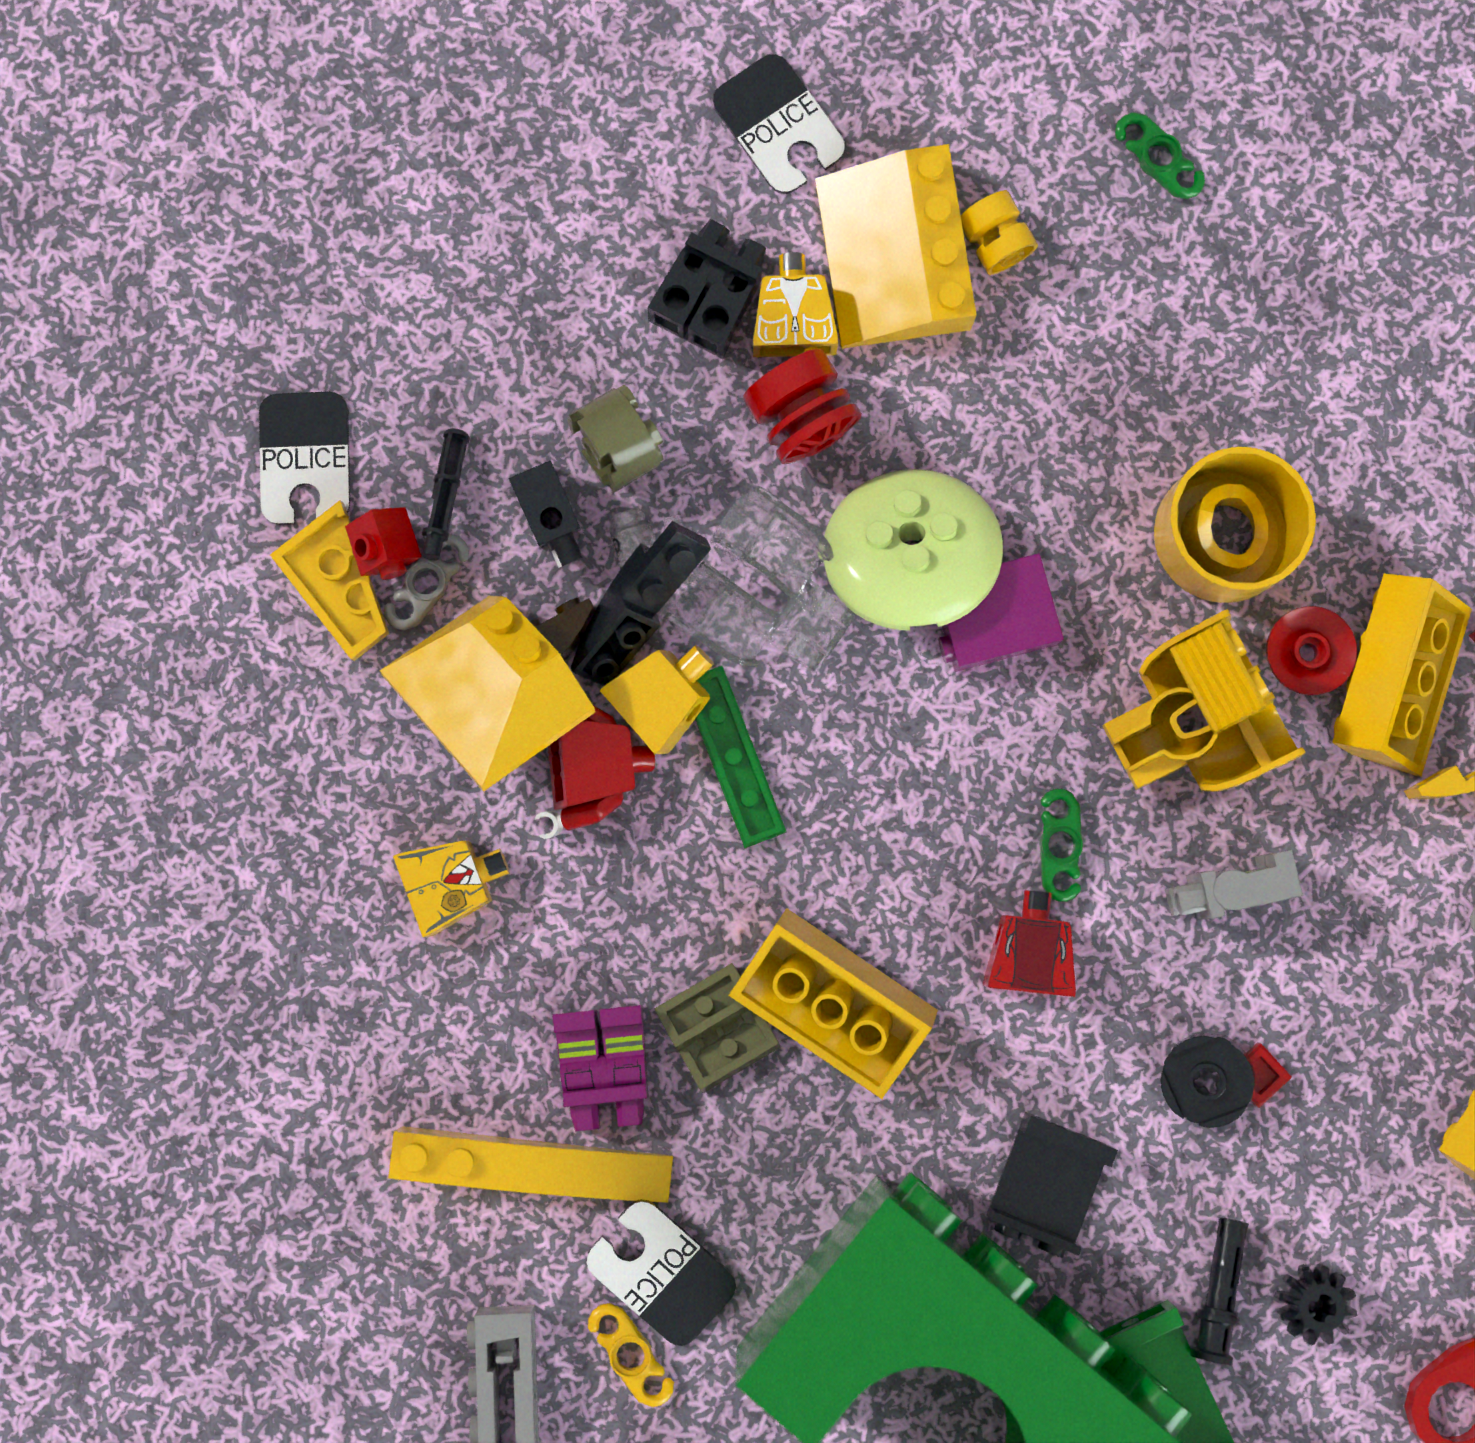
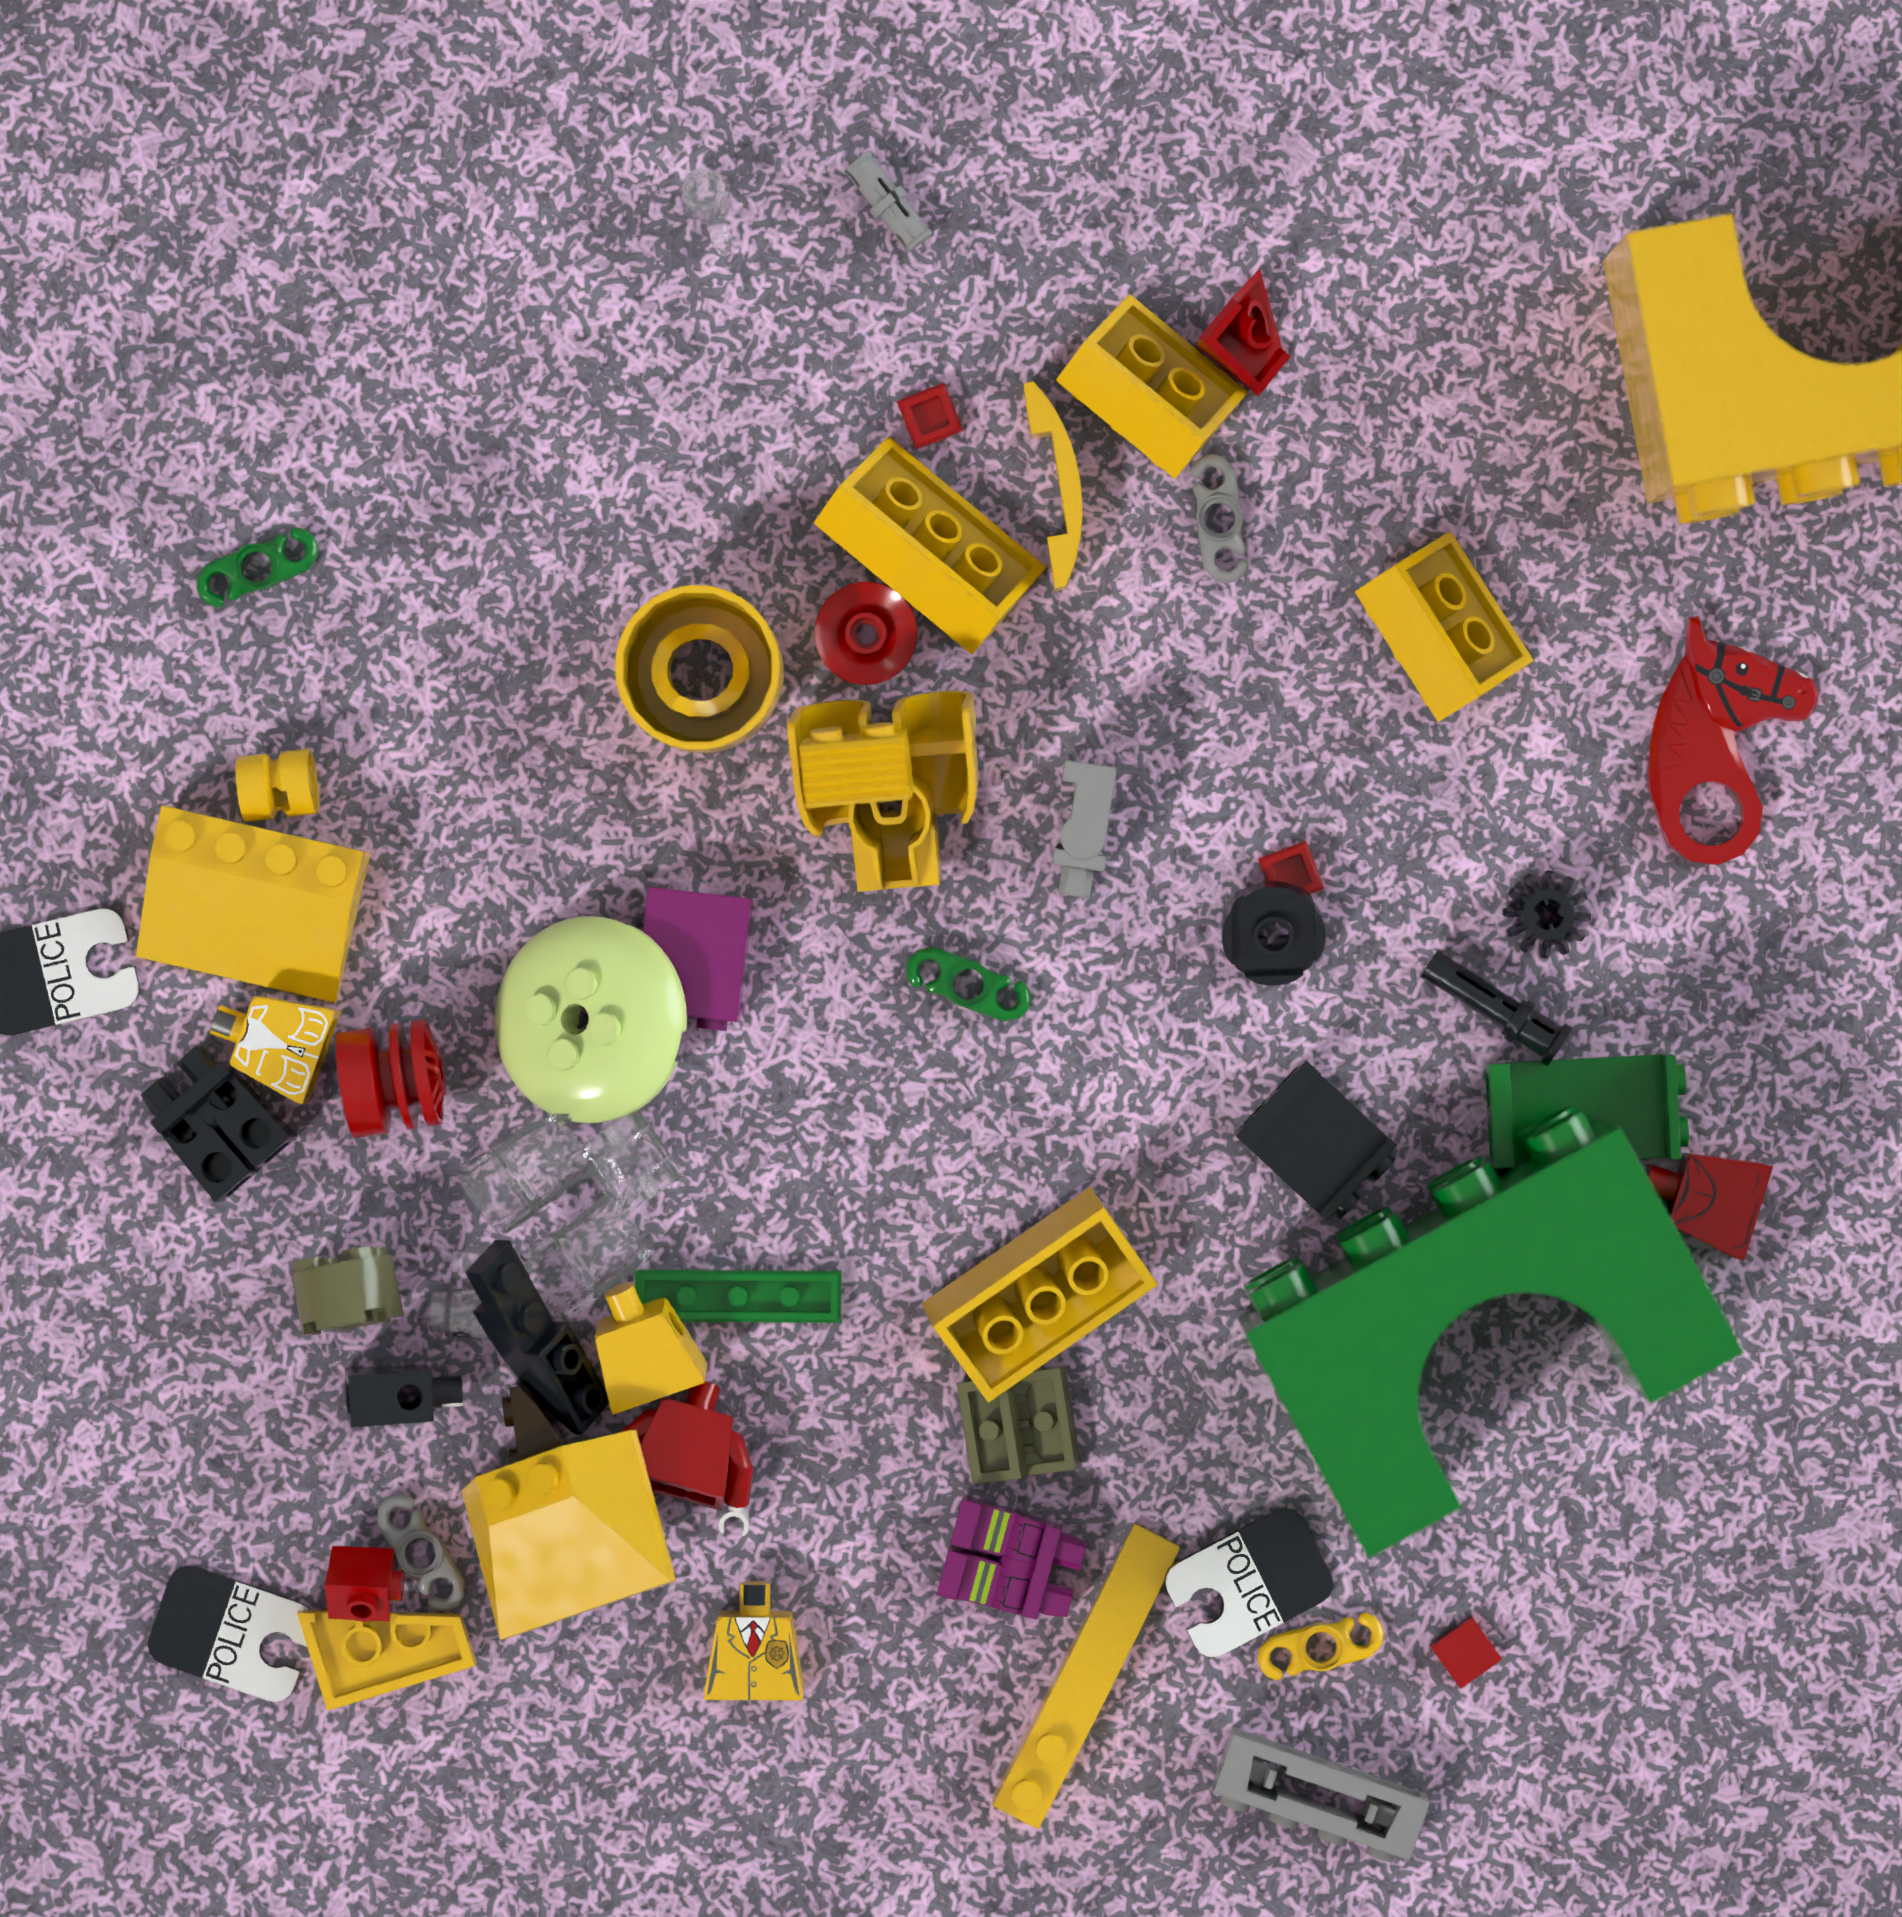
camera: 65 degrees left, 5 degrees up
(444, 492) = (330, 1496): black piece -> none
(1032, 951) = (1067, 1062): torso -> none

